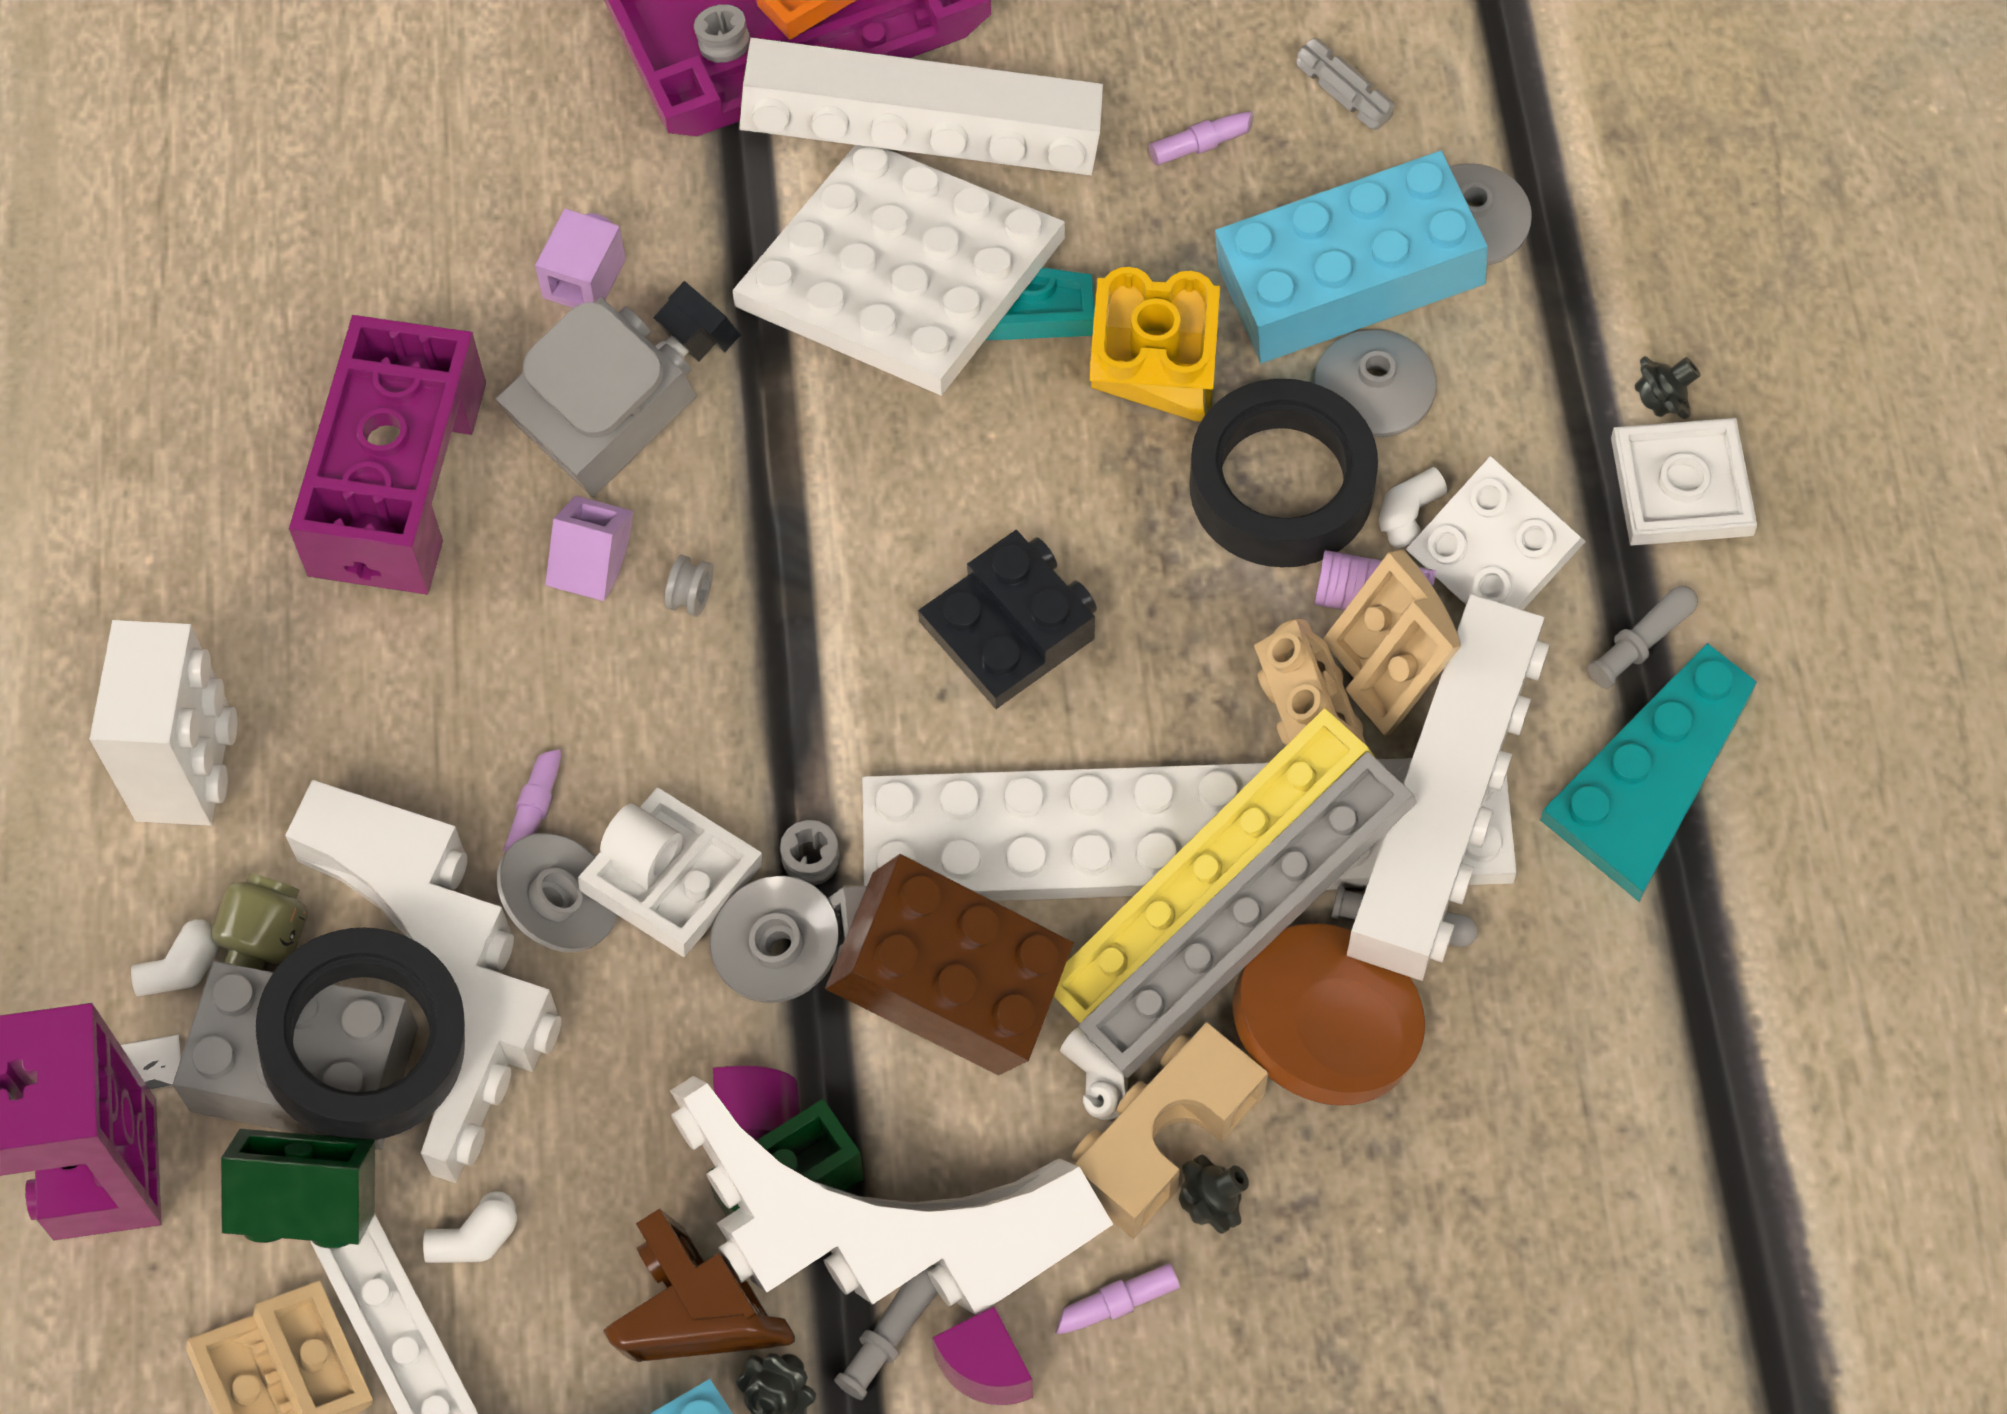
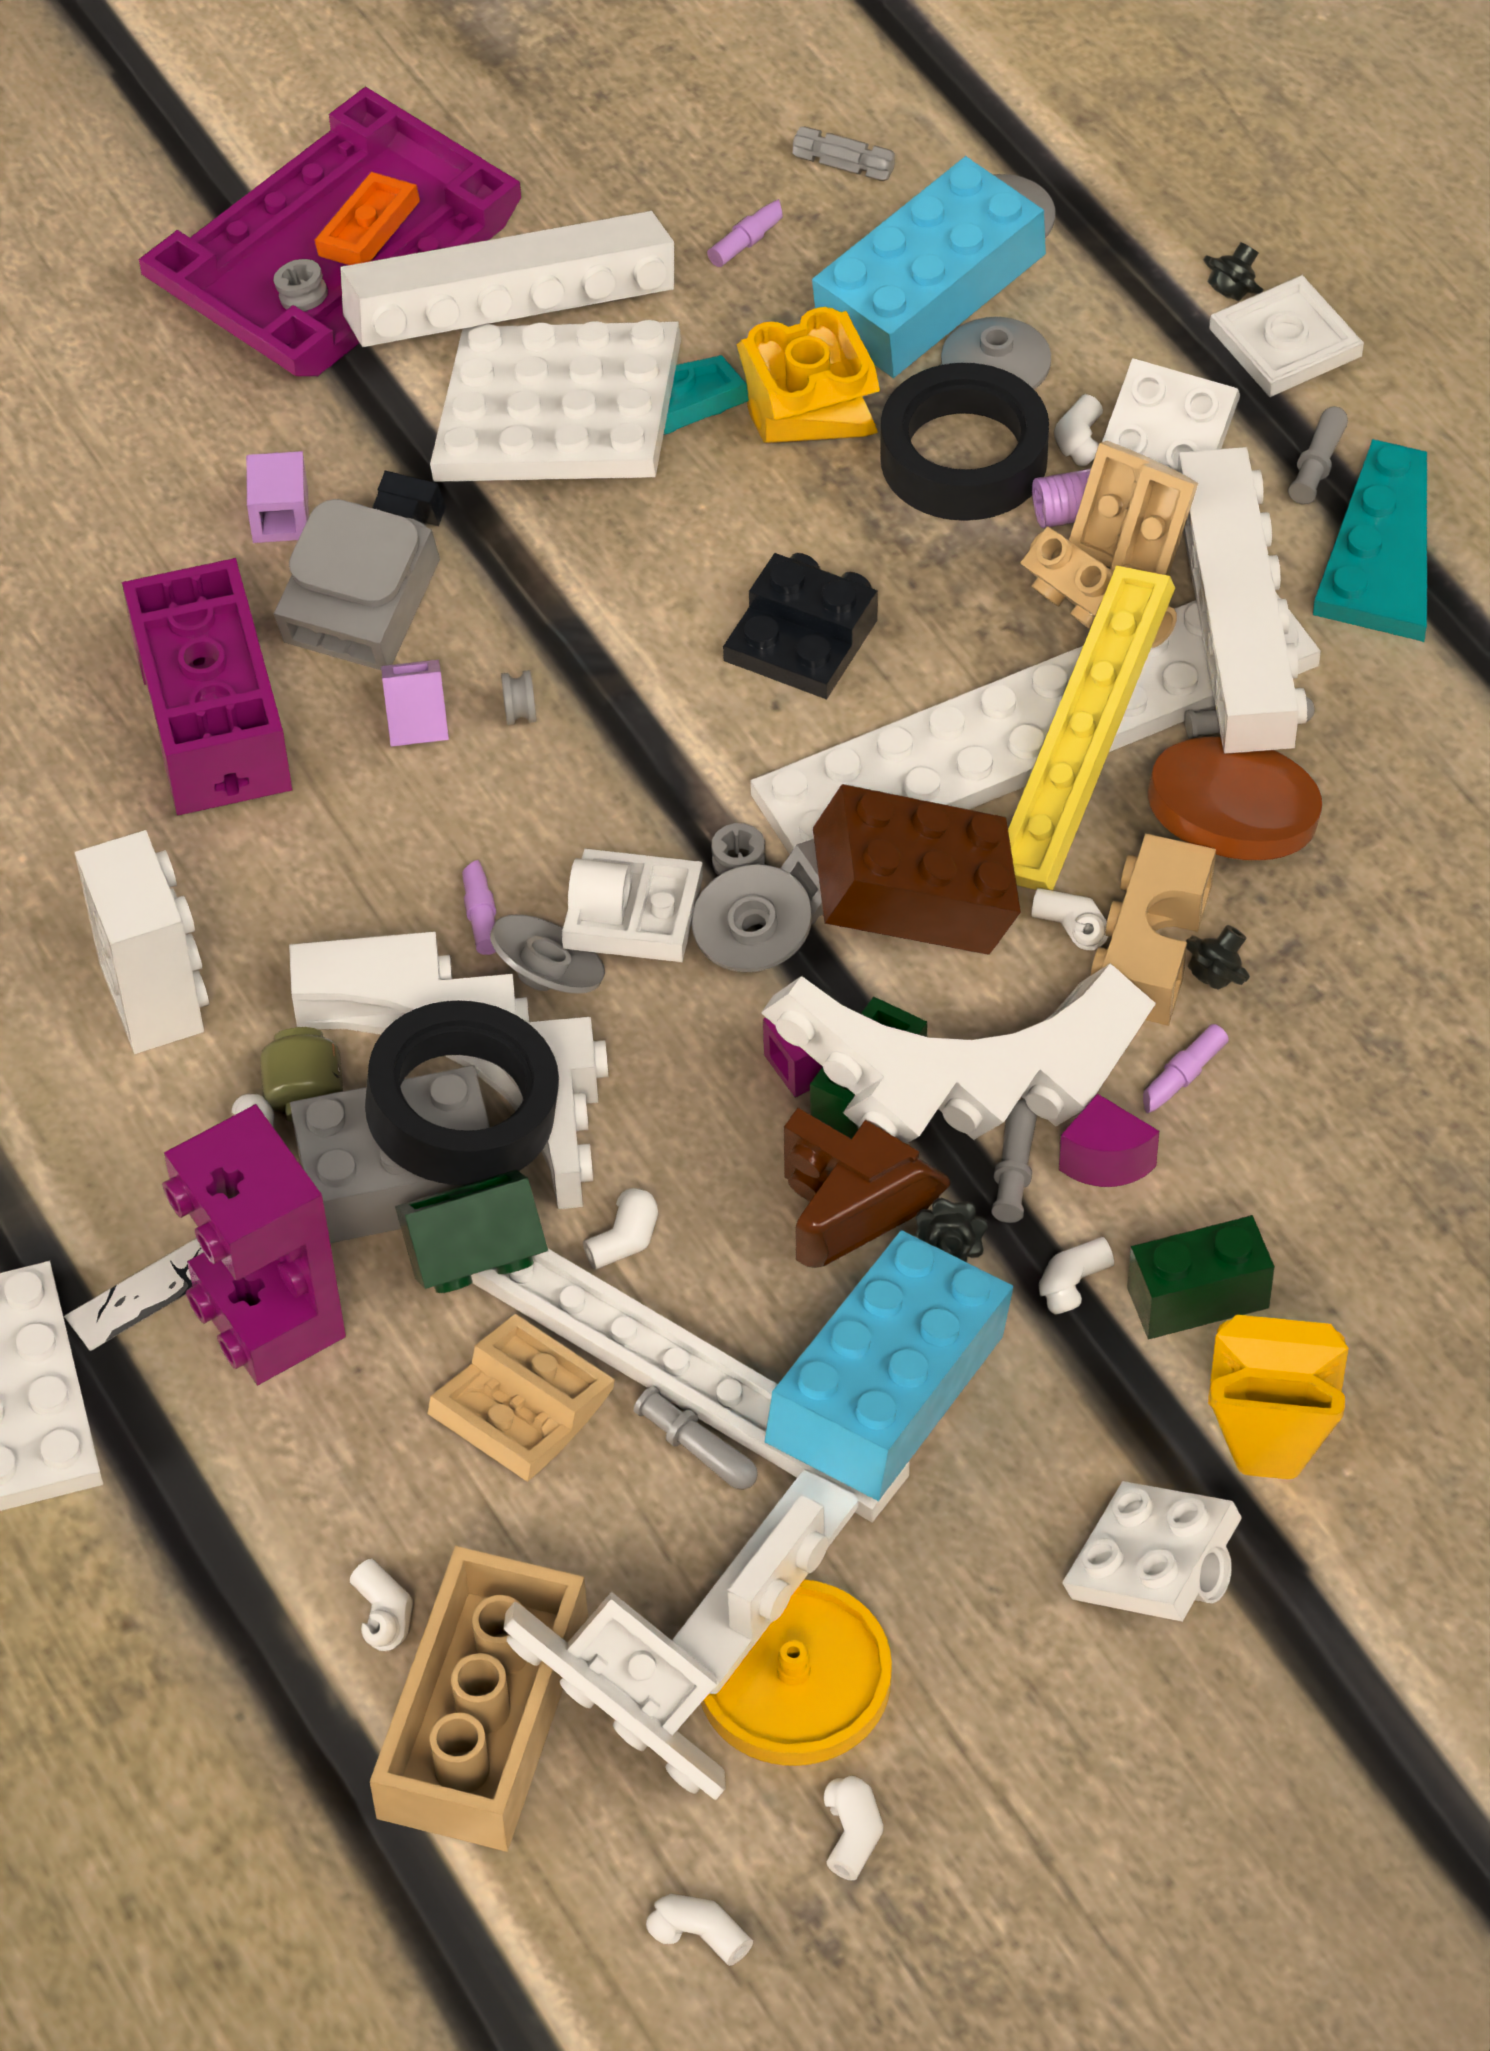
camera: 25 degrees left, 10 degrees down
(1247, 914) = (1135, 741): light grey plate -> none

